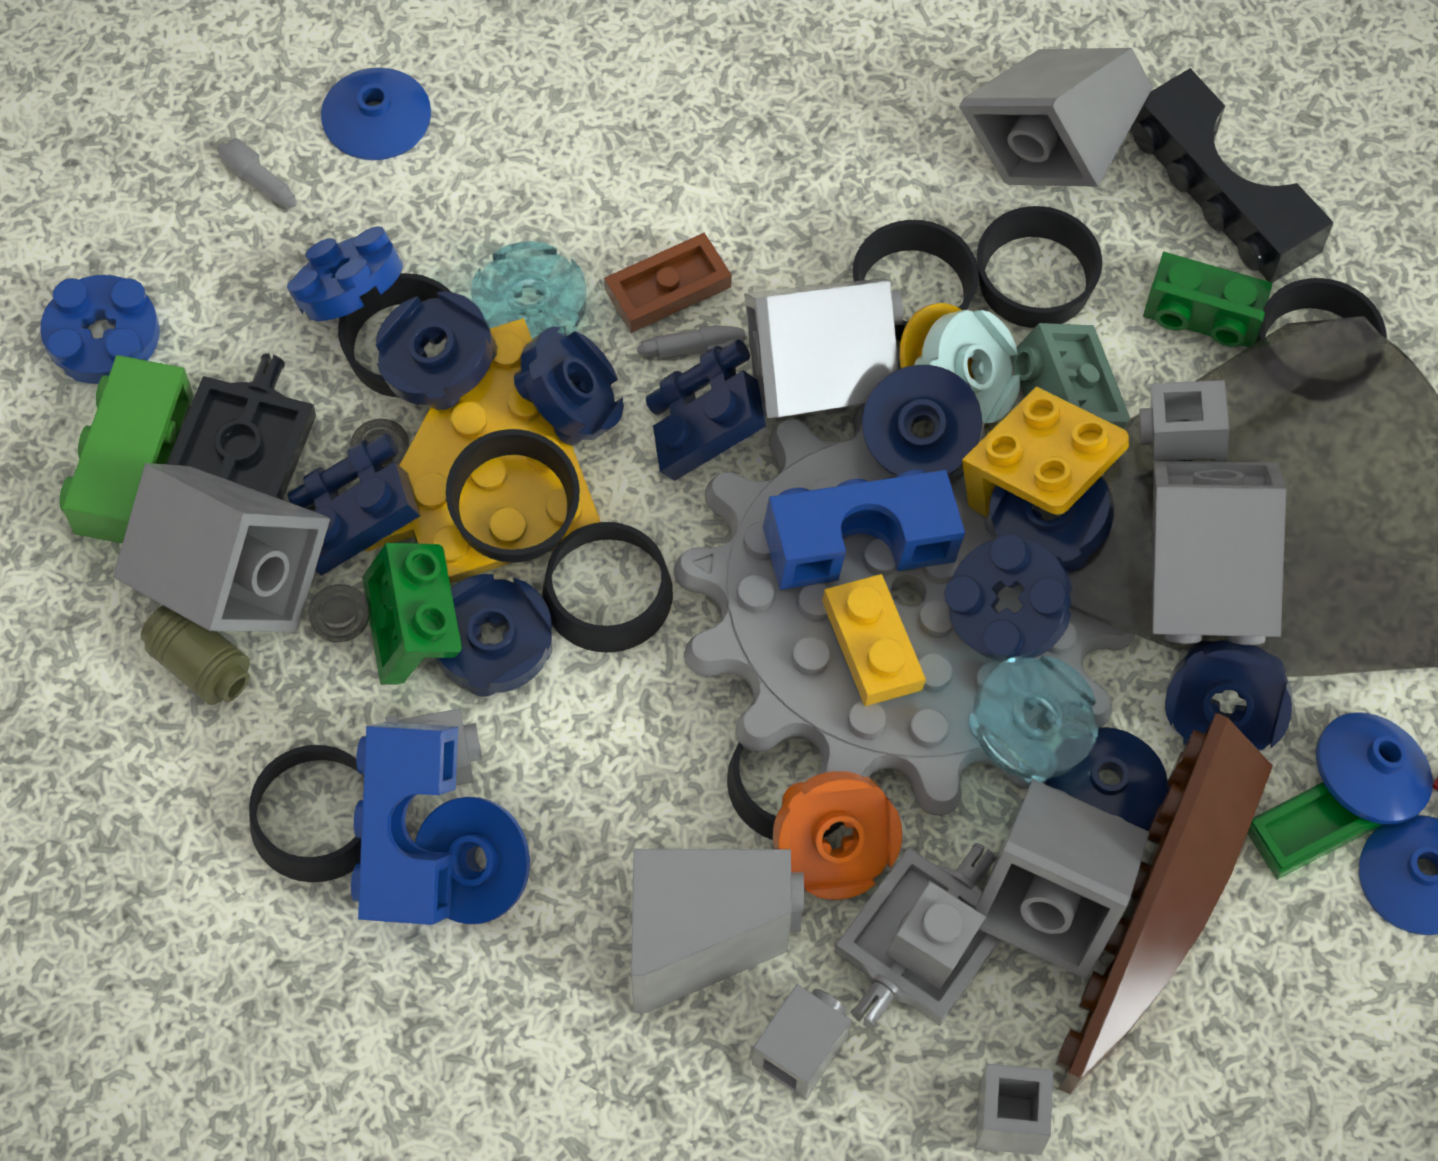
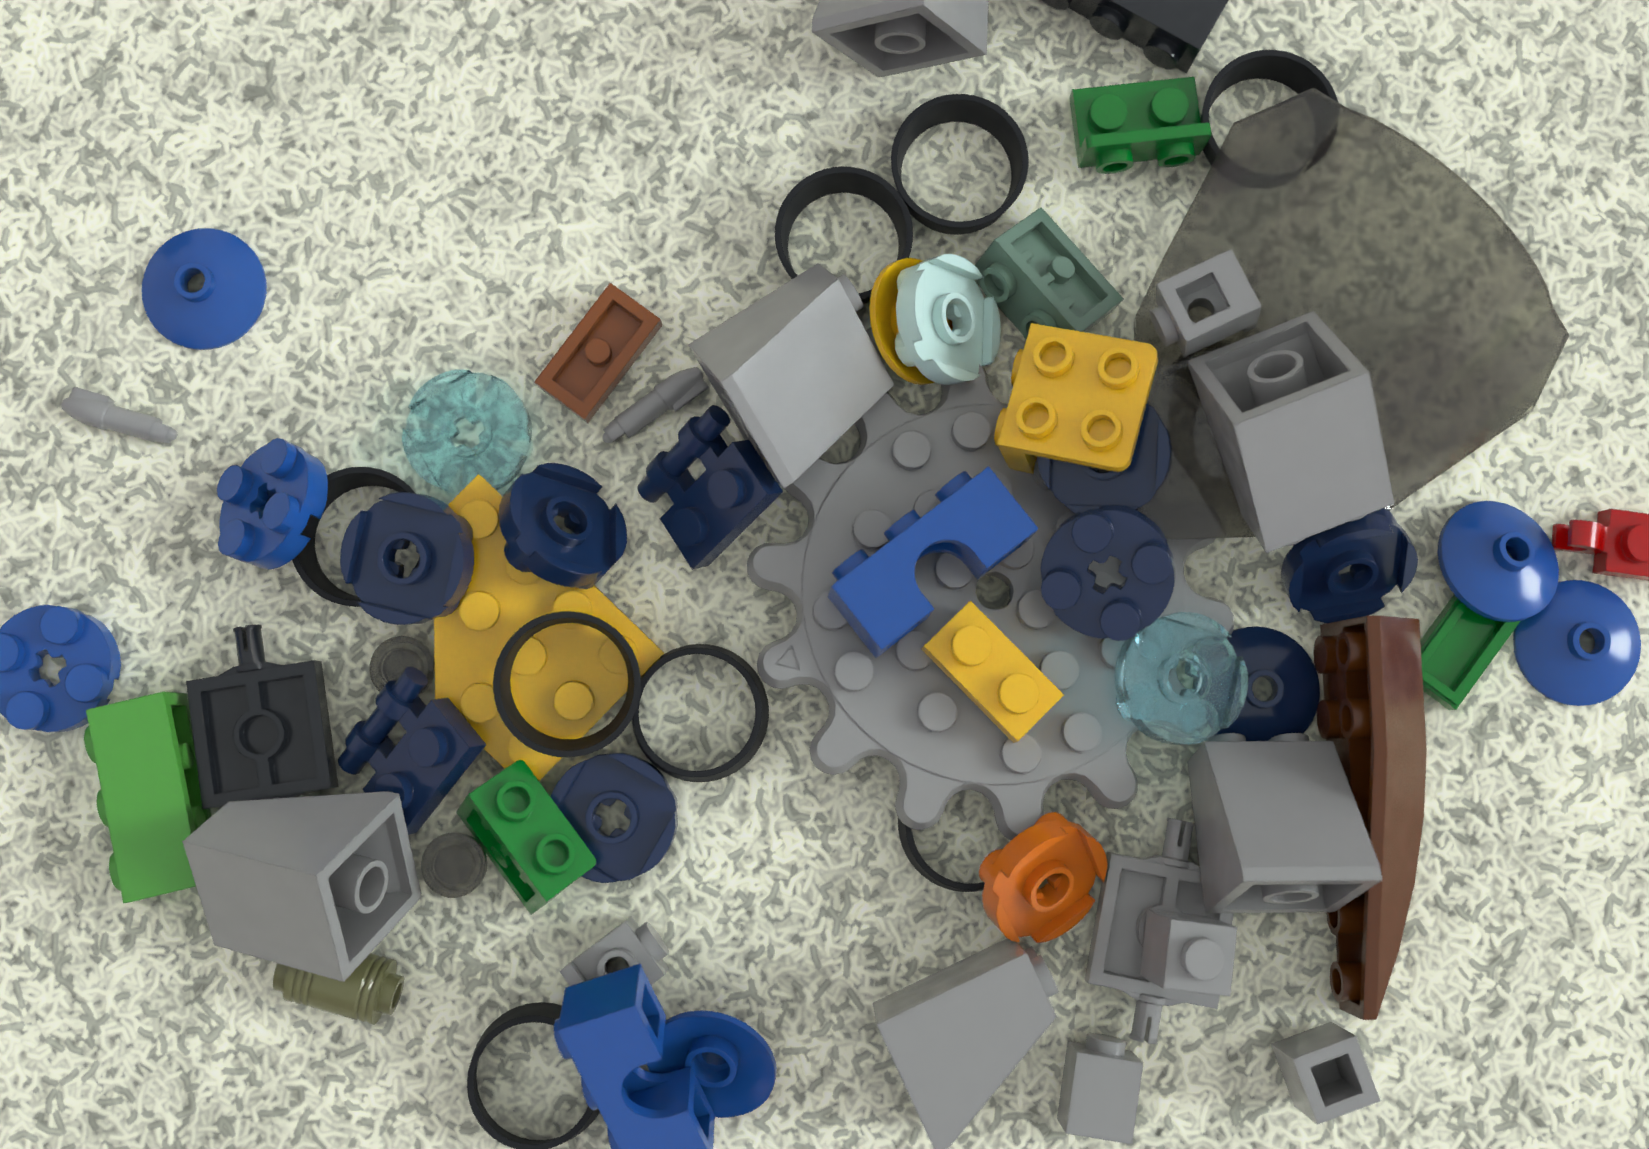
camera: 25 degrees left, 20 degrees up
(915, 396) = (960, 439): dark blue dish -> none

